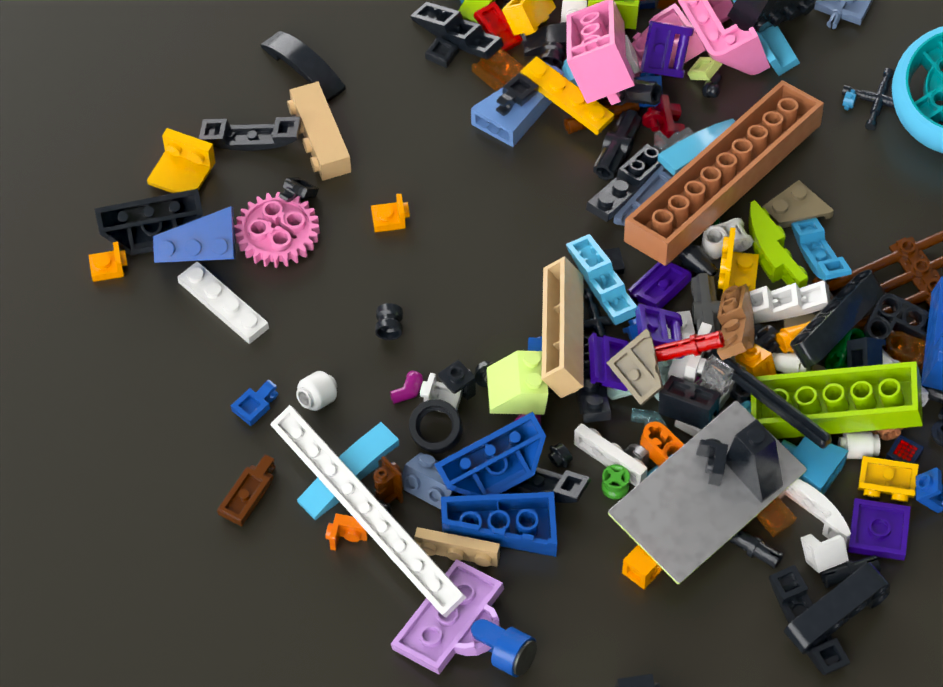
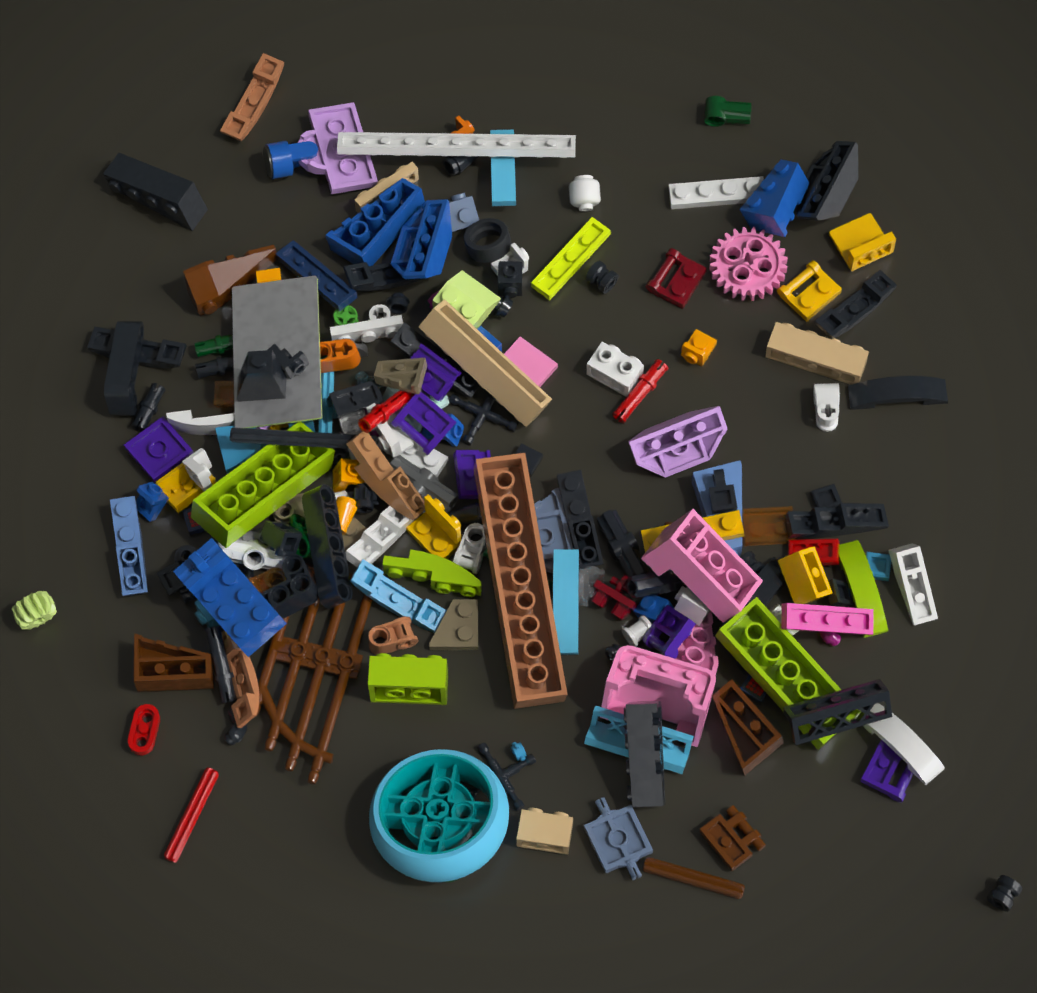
camera: 130 degrees right, 10 degrees up
(108, 264) = (815, 143): light orange bracket -> none
(135, 348) = (720, 111): none -> dark green piece
(247, 491) = (544, 102): reddish brown hinge -> none
(254, 405) = (610, 149): blue plate -> none
(260, 171) = (813, 297): none -> yellow plate
(298, 187) = (773, 301): black plate -> none
(335, 268) = (683, 282): none -> dark red plate
(358, 98) = (826, 403): none -> white piece
(388, 482) = (466, 175): reddish brown hinge -> none
(391, 358) = (570, 258): none -> neon yellow plate
(410, 389) = (536, 254): magenta arm -> none
(459, 226) = (646, 383): none -> red pin
(467, 252) = (615, 368): none -> white brick
(488, 167) = (679, 441): none -> lavender wedge
(521, 320) = (531, 361): none -> bright pink tile
(585, 453) = (379, 308): none -> white bush
(599, 532) = (329, 285): none -> dark blue plate
(602, 279) = (511, 434): medium azure slope -> none
(677, 88) = (637, 631): none -> white bush
(679, 604) = (212, 283): none -> reddish brown wedge
(740, 564) = (216, 345): none -> dark green pin
(824, 554) = (172, 395): white panel -> none
(854, 238) = (394, 635): none -> nougat piece
(874, 460) = (198, 468): none -> white bracket
(880, 191) = (408, 679): none -> lime brick
(891, 33) = (545, 831): none -> tan brick

